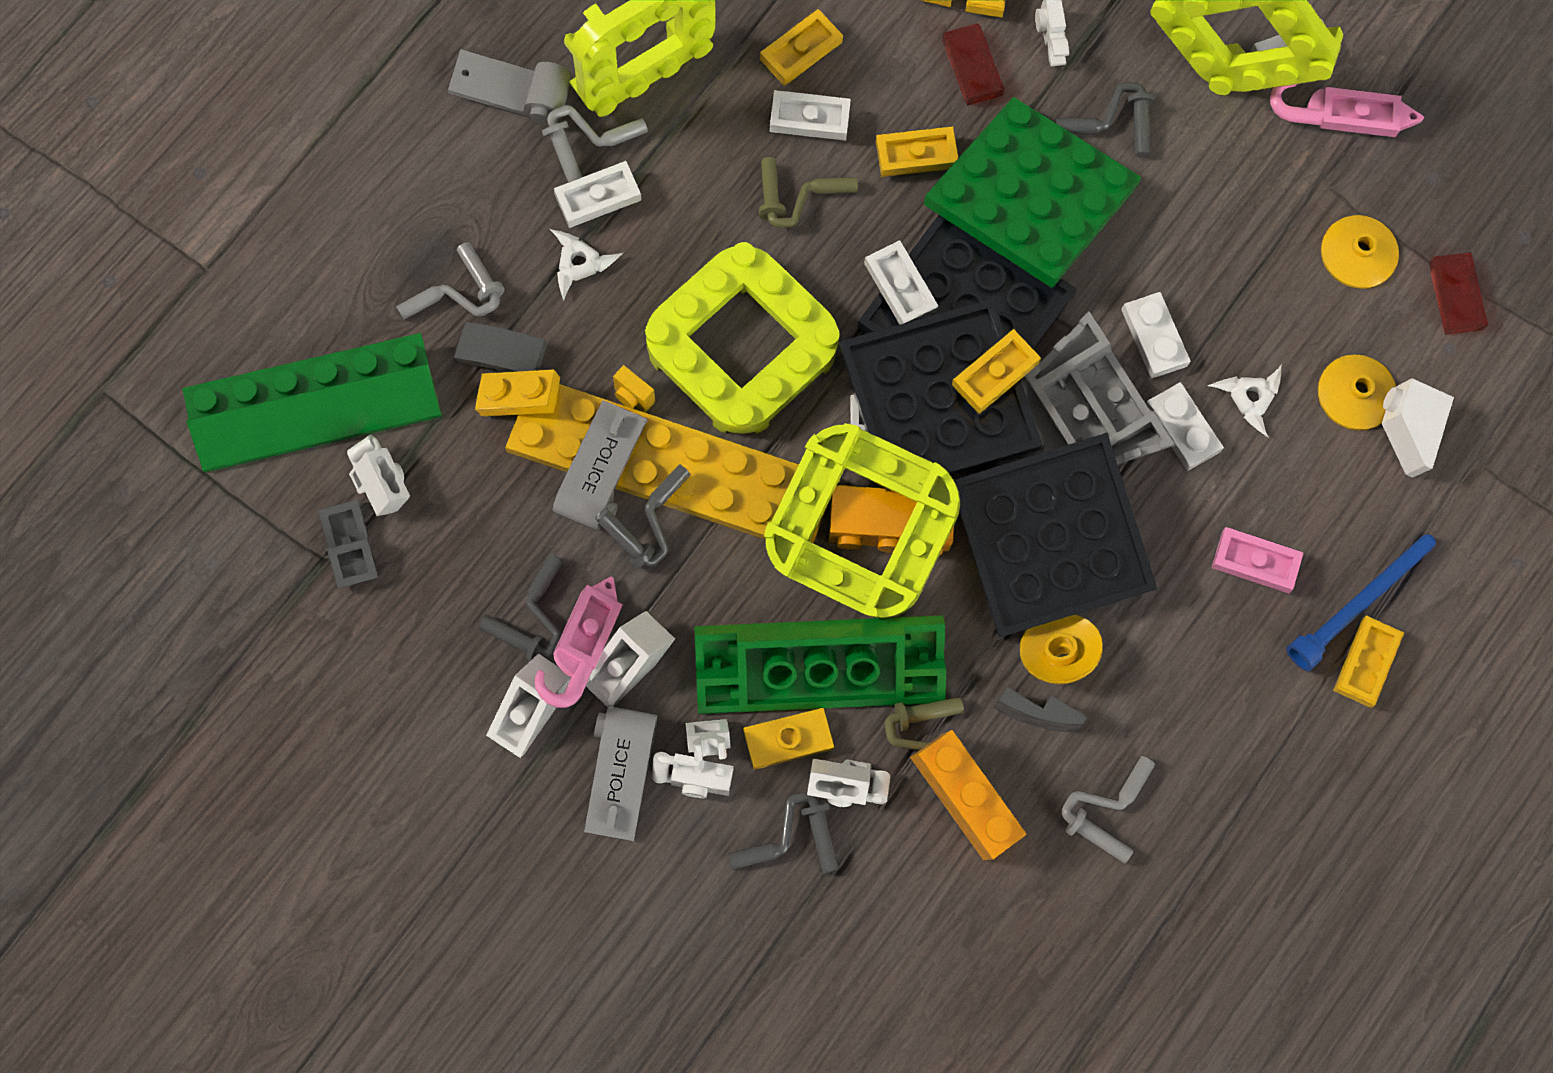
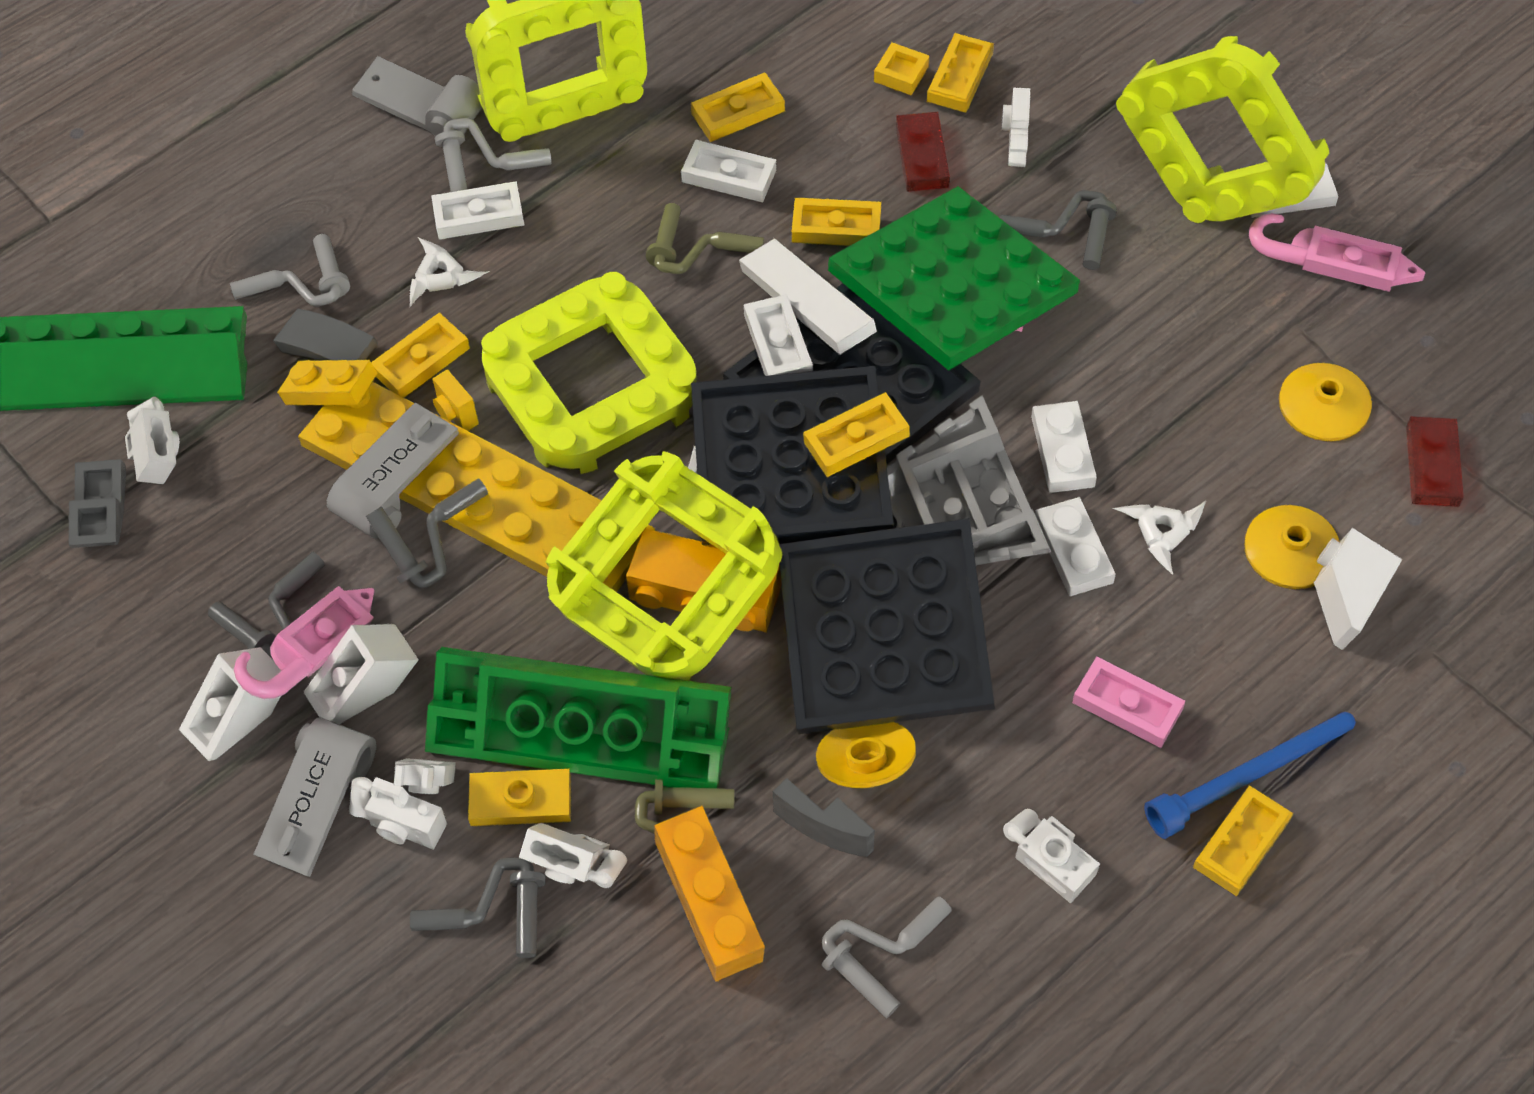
camera: 20 degrees right, 15 degrees down
(589, 349) = (420, 355): none -> yellow plate
(921, 237) = (811, 297): none -> white tile
(1223, 701) = (1051, 853): none -> white piece

